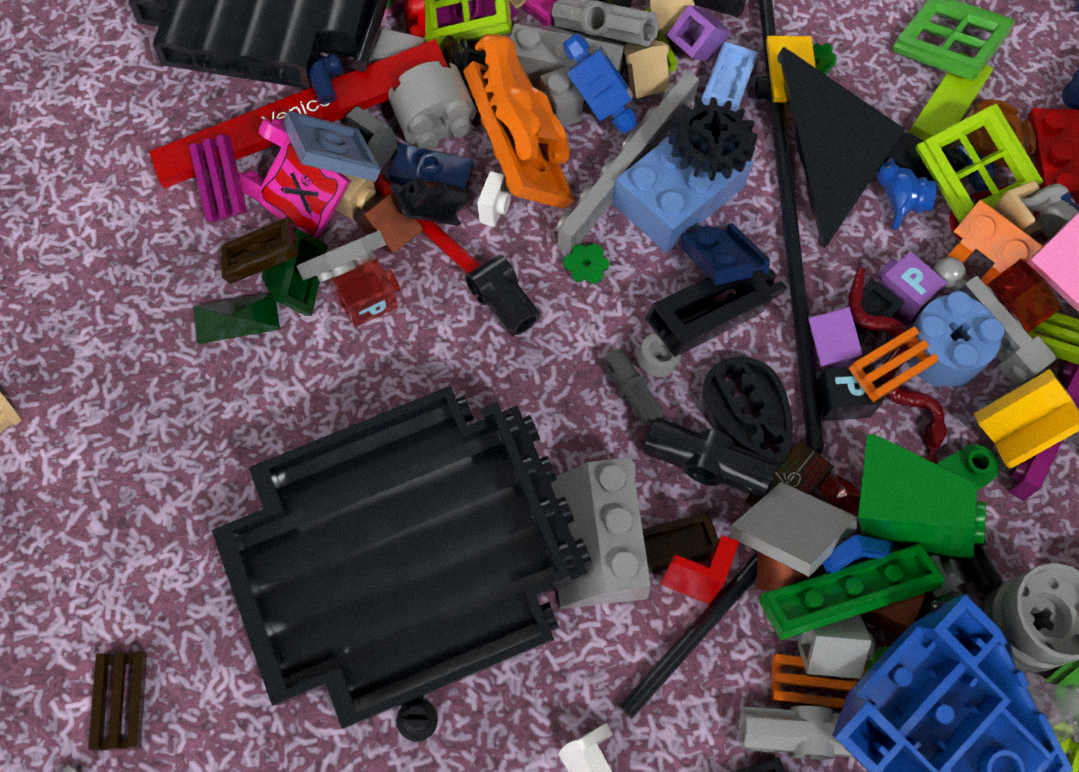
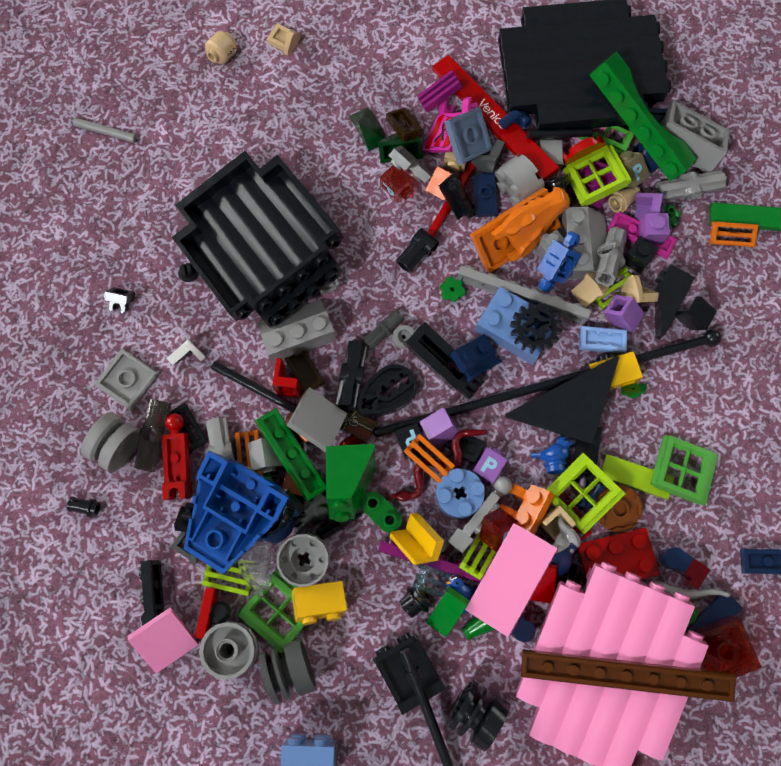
camera: 80 degrees right, 10 degrees up
(99, 701) = (167, 140): dark brown tile -> none
(493, 199) = (470, 226): white plate -> none
(856, 550) = (313, 456): blue tile -> none

